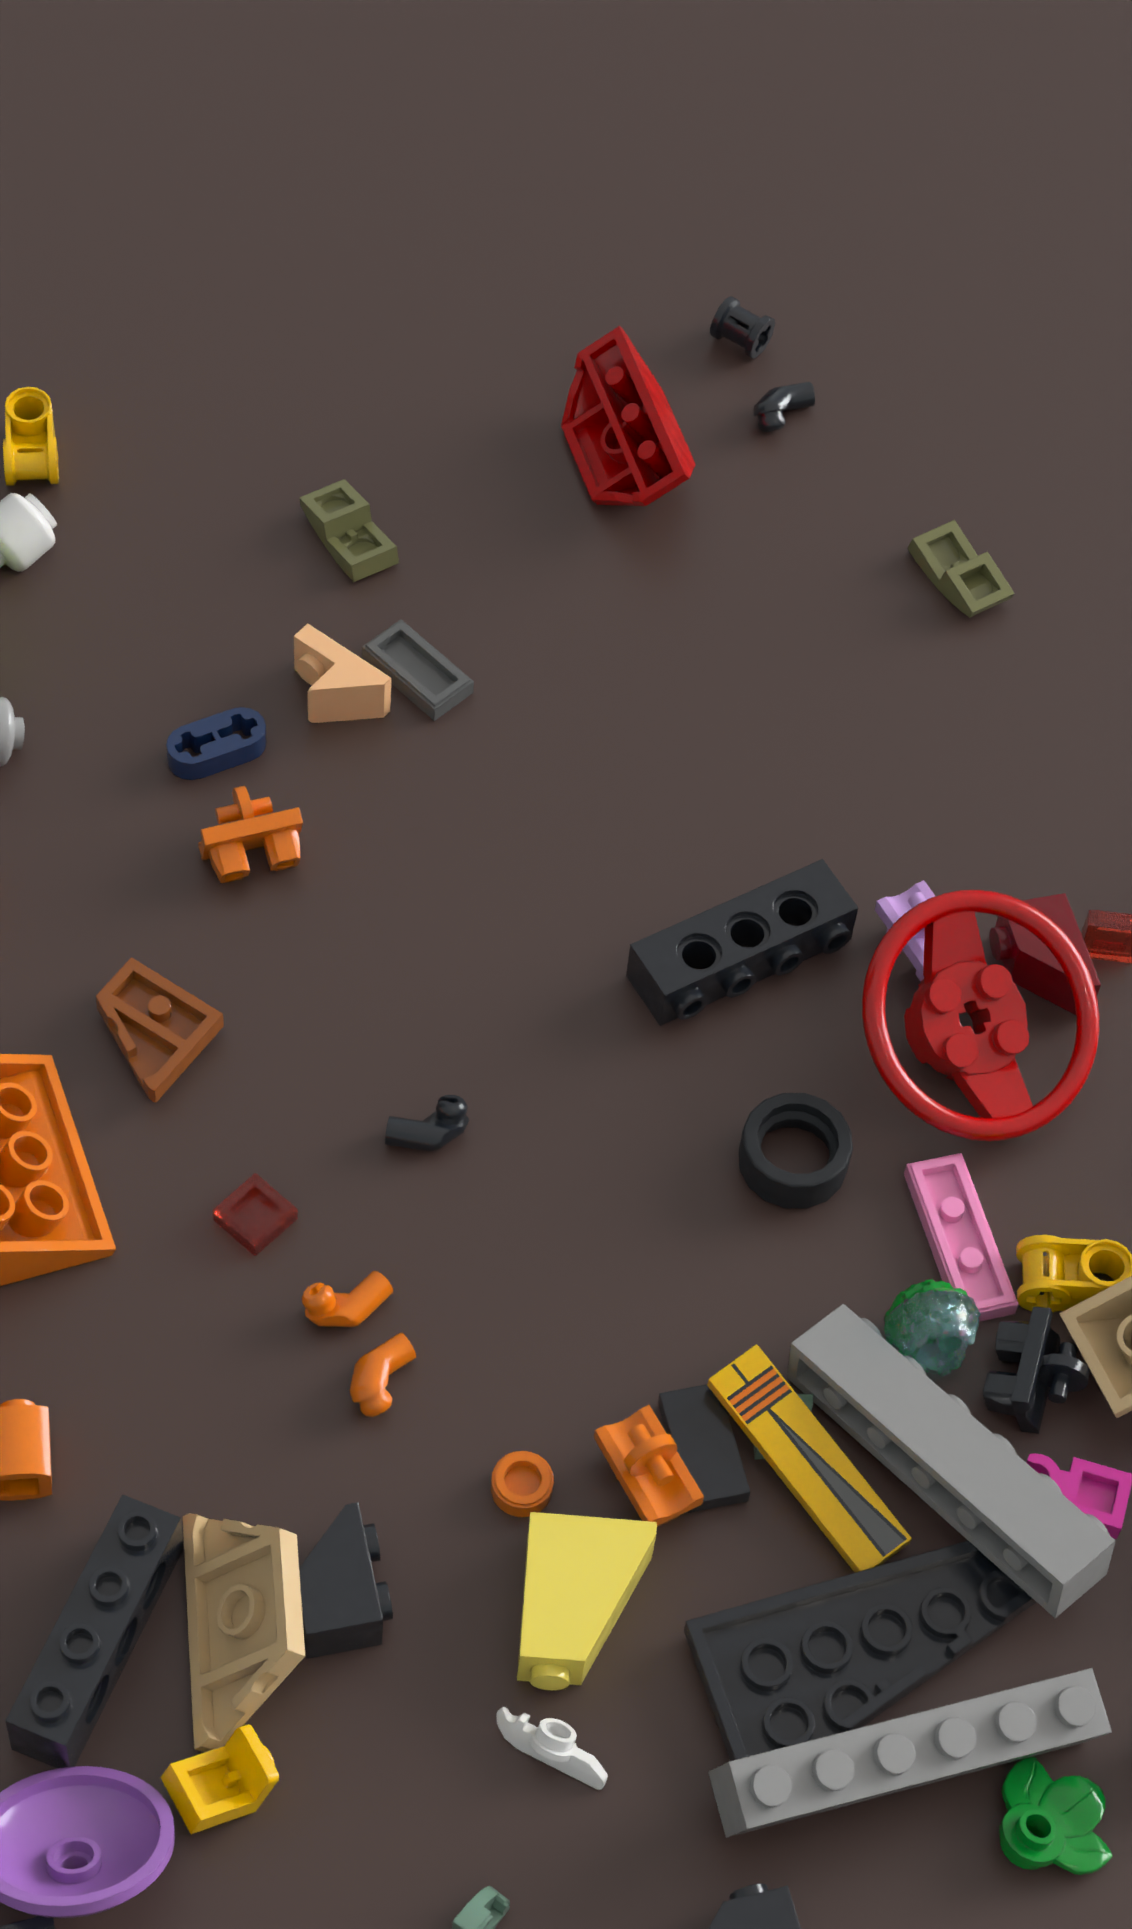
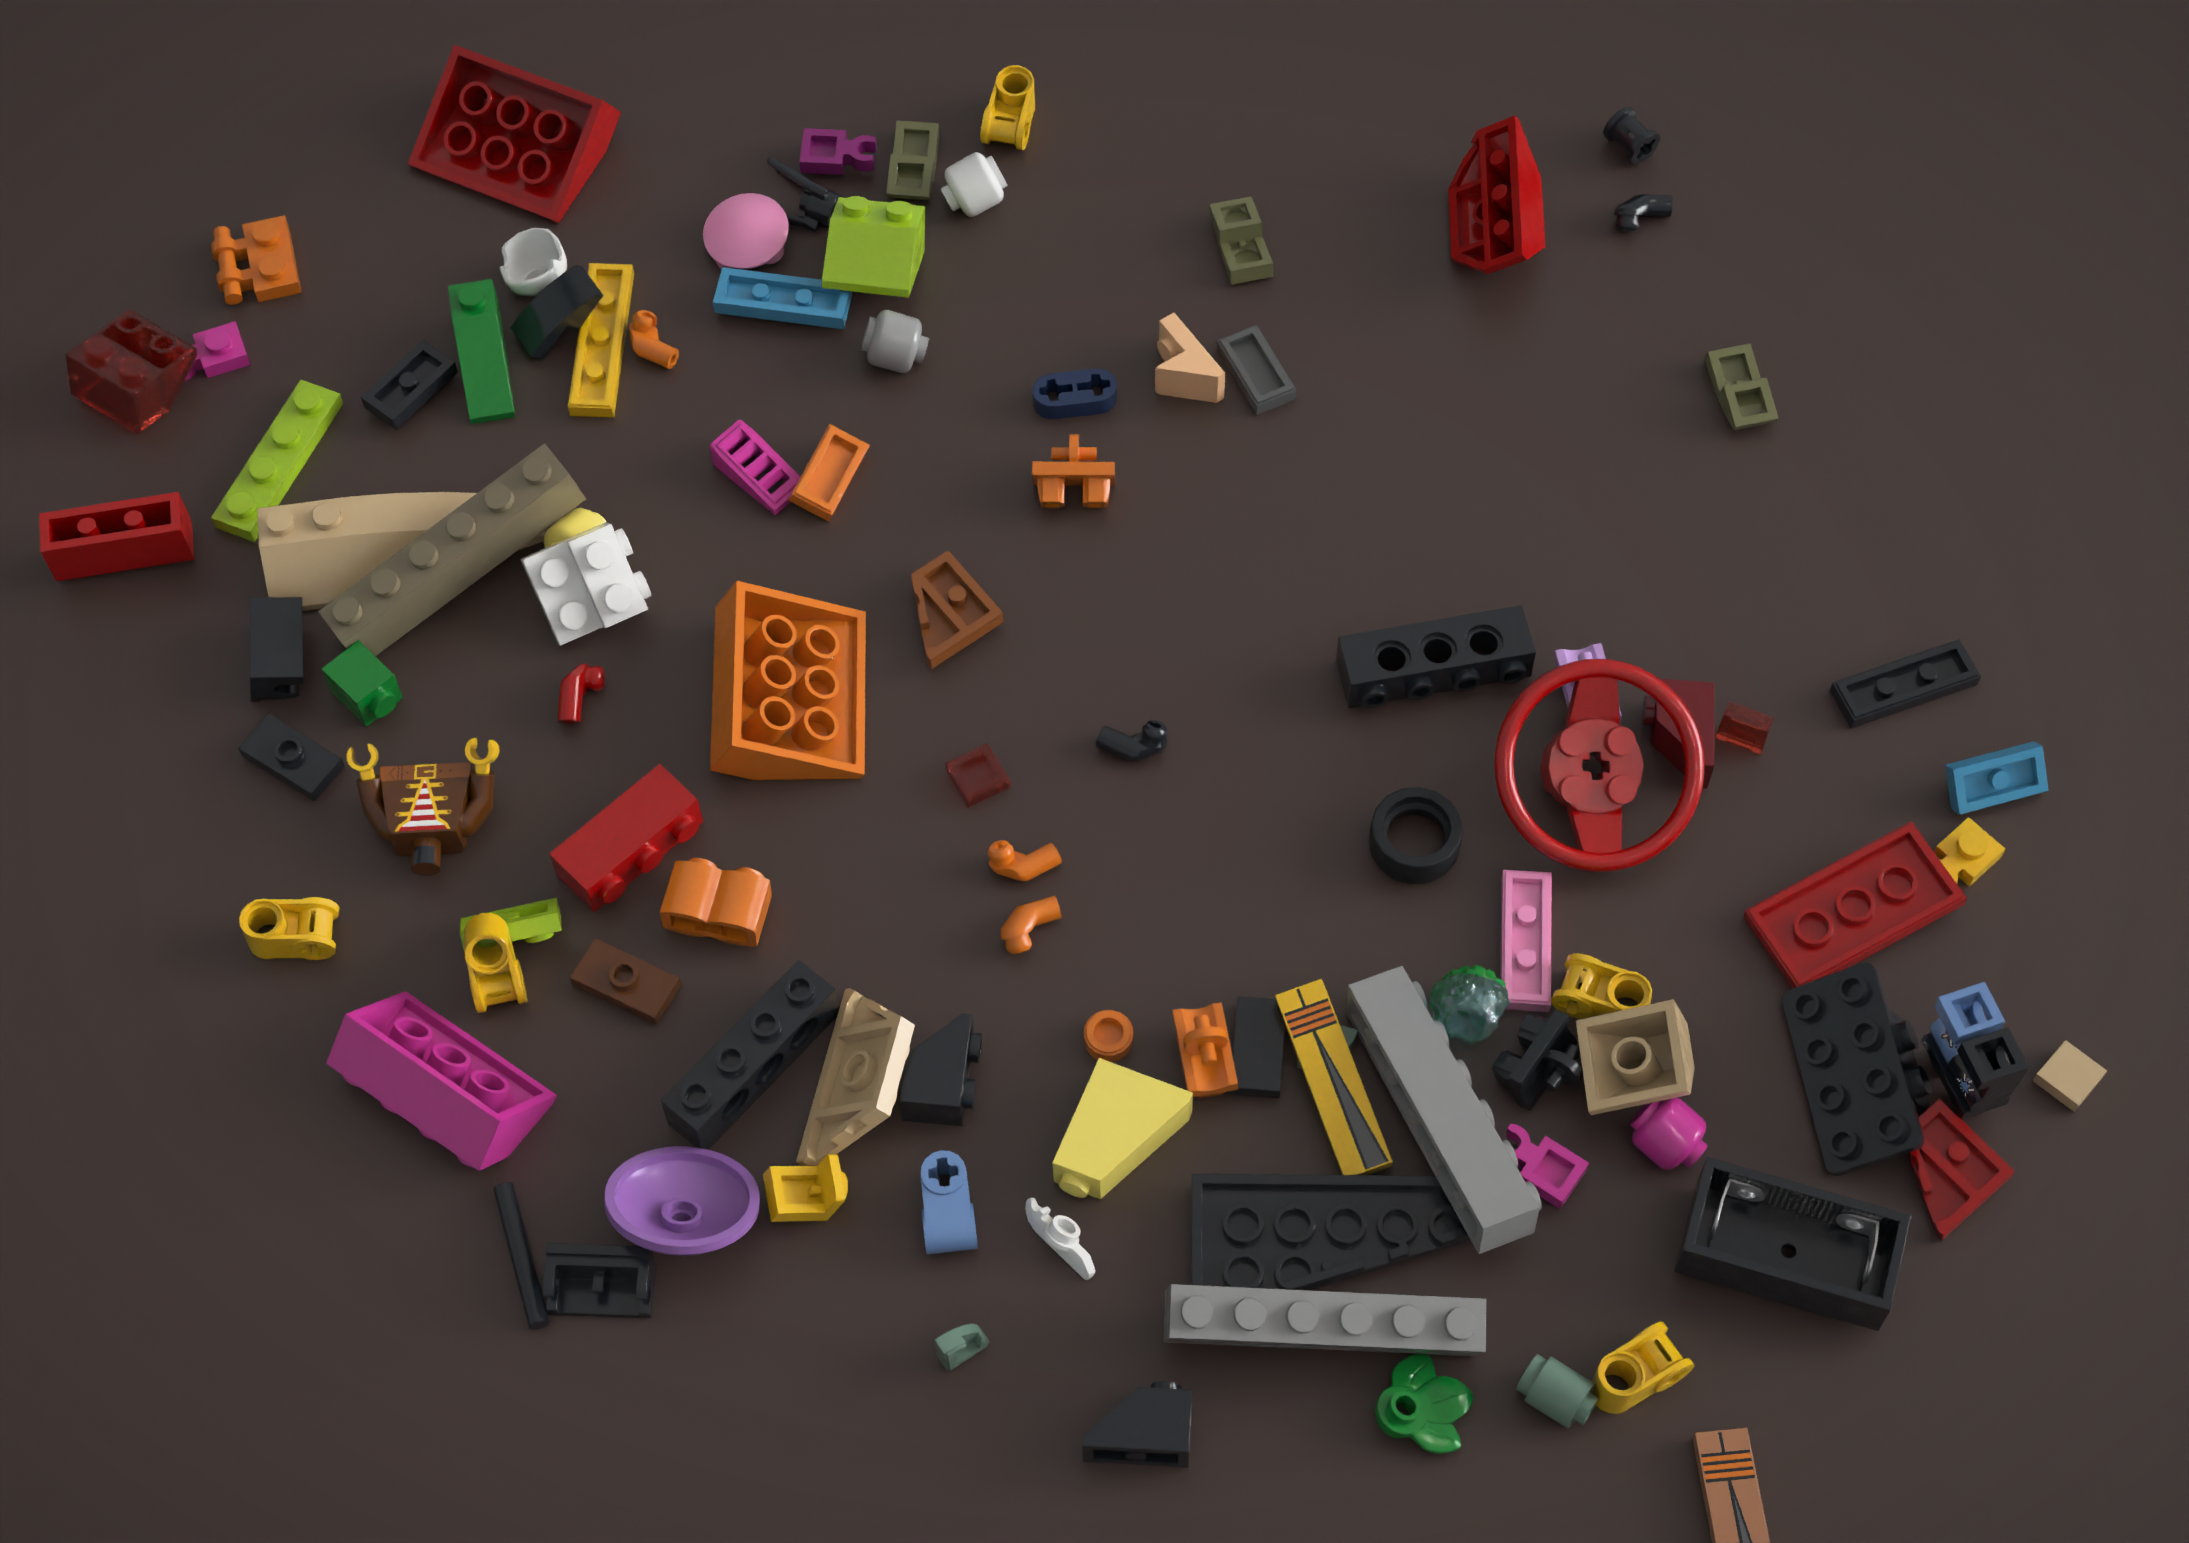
camera: 25 degrees right, 5 degrees up
(408, 1755) = (947, 1210): none -> medium blue piece

